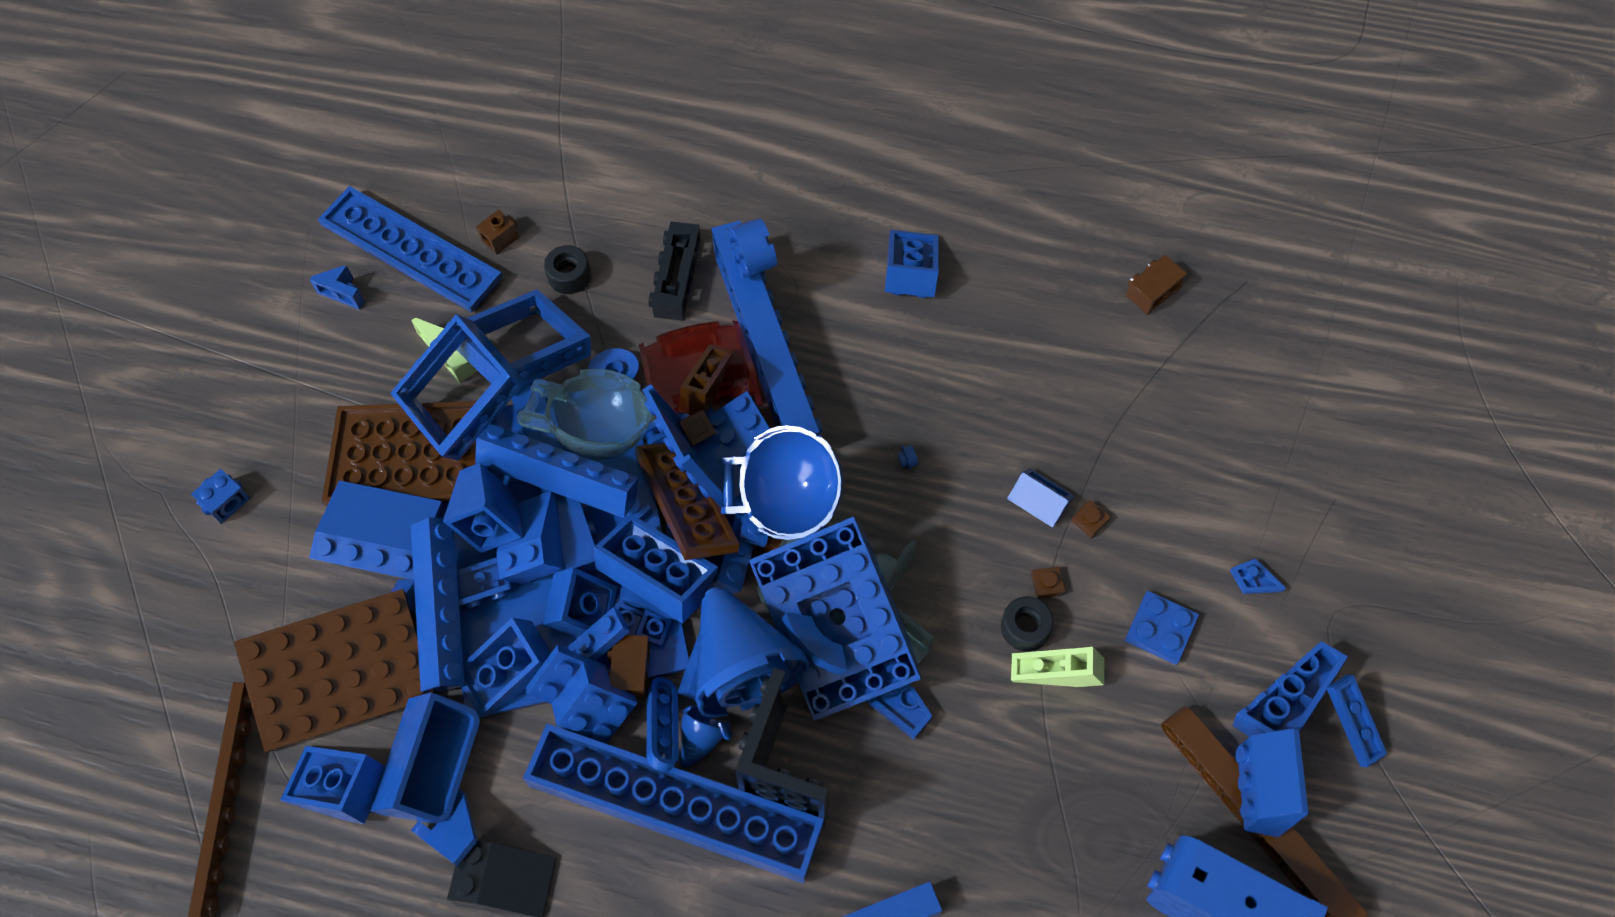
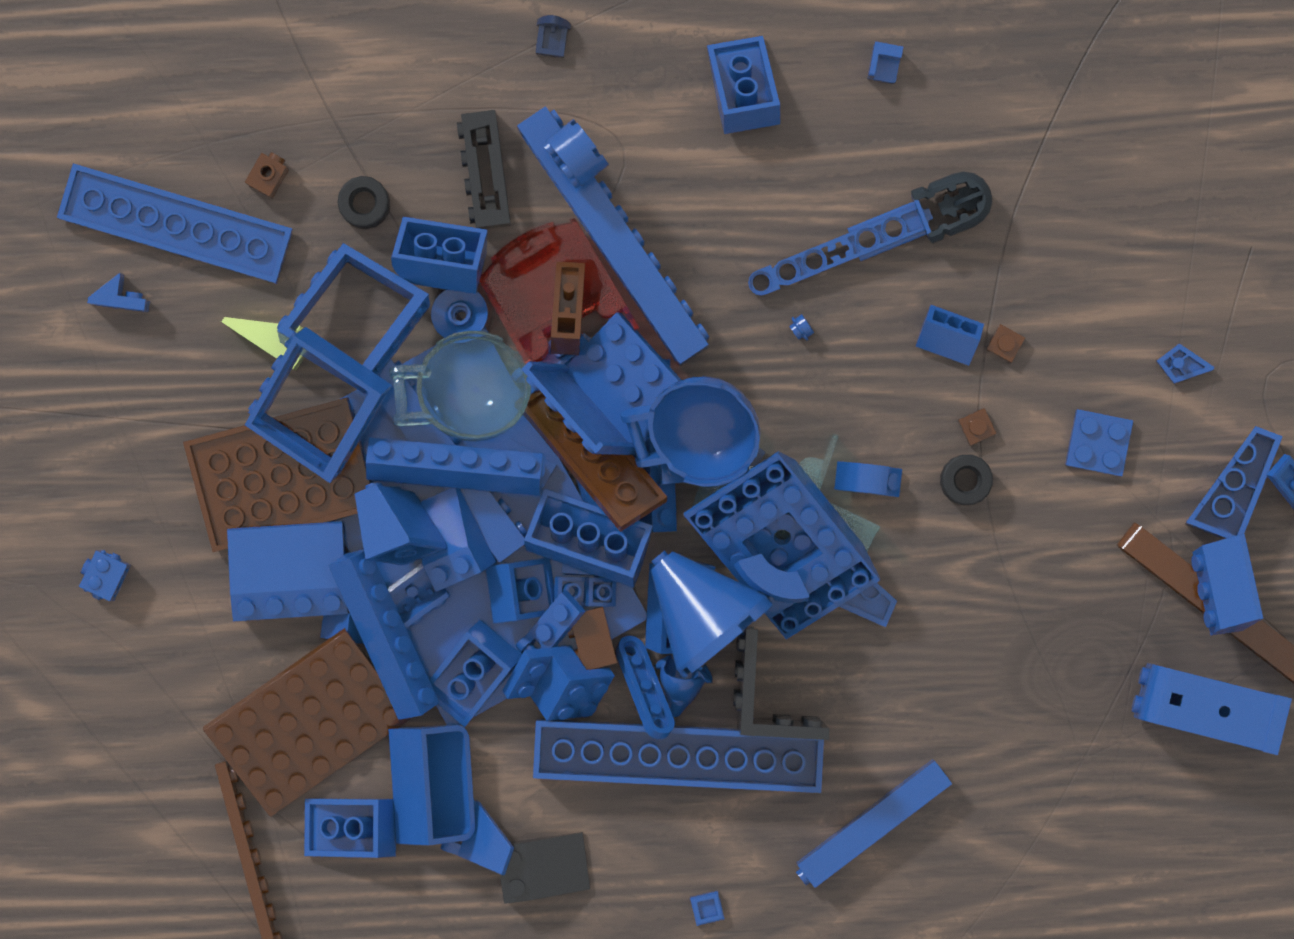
camera: 20 degrees left, 25 degrees up
(613, 315) = (440, 254): none -> blue brick
(697, 427) = (579, 371): reddish brown plate -> none
(766, 193) = (552, 36): none -> dark blue tile
(934, 594) = (868, 479): none -> blue brick
(1036, 274) = (884, 62): none -> blue panel
(1059, 667) = (1006, 517): yellowish green slope -> none
(1077, 380) = (911, 217): none -> blue piece
(1155, 284) = (1019, 39): reddish brown brick -> none

